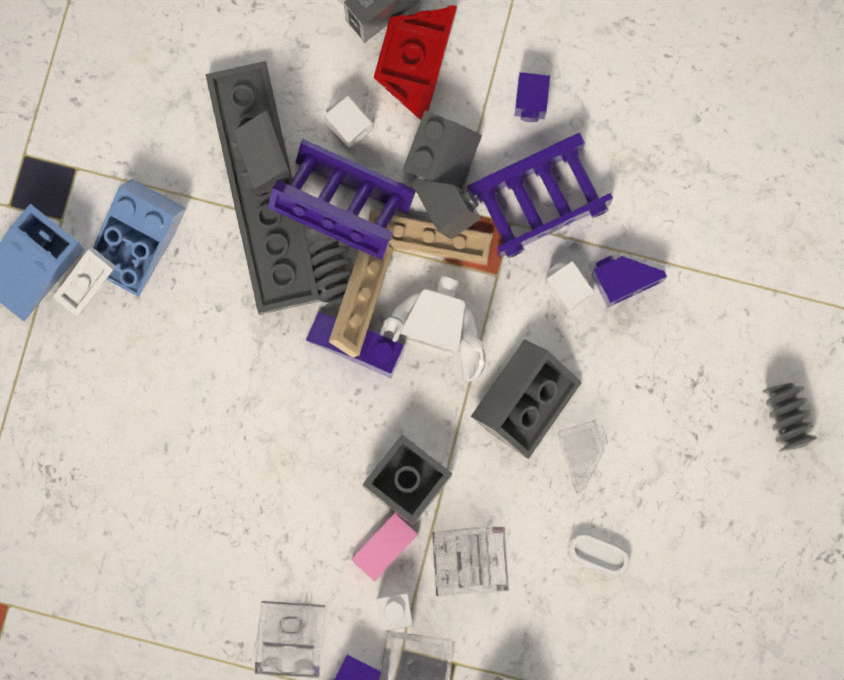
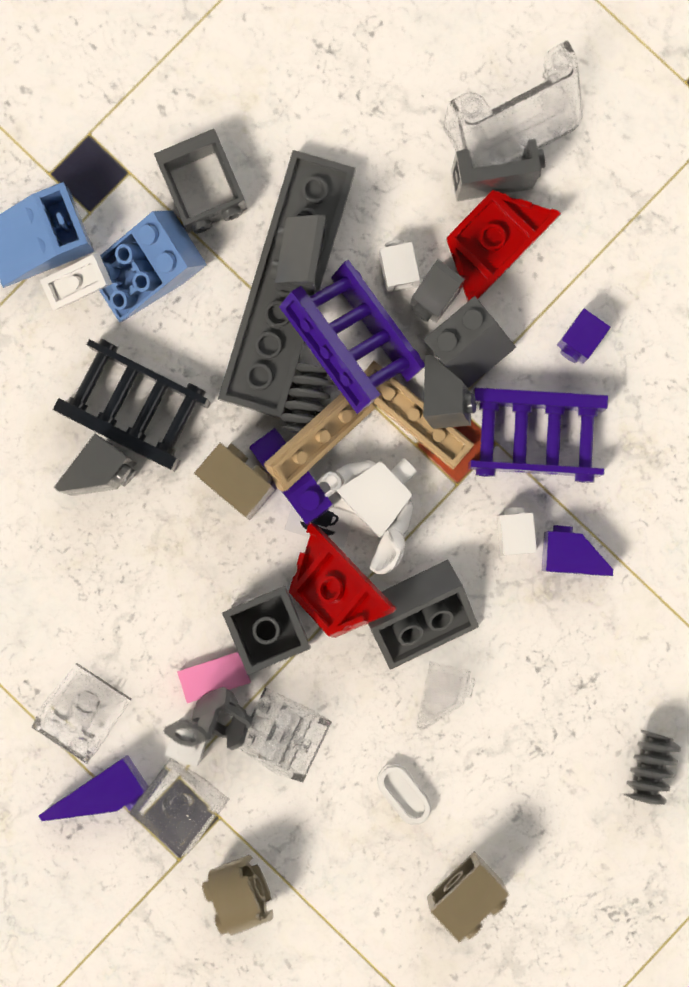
camera: 30 degrees right, 5 degrees up
(118, 124) = (189, 152): none -> dark grey window
(174, 385) = (105, 422): none -> black fence
(191, 425) = (97, 469): none -> dark grey slope
(312, 370) = (235, 481): none -> dark tan brick
(391, 125) = (436, 292): none -> dark grey slope
(397, 579) = (206, 716): none -> dark grey piece
(412, 369) = (334, 523): none -> white sticker
(444, 414) = (334, 588): none -> red wing
(699, 606) = (468, 898): none -> dark tan brick

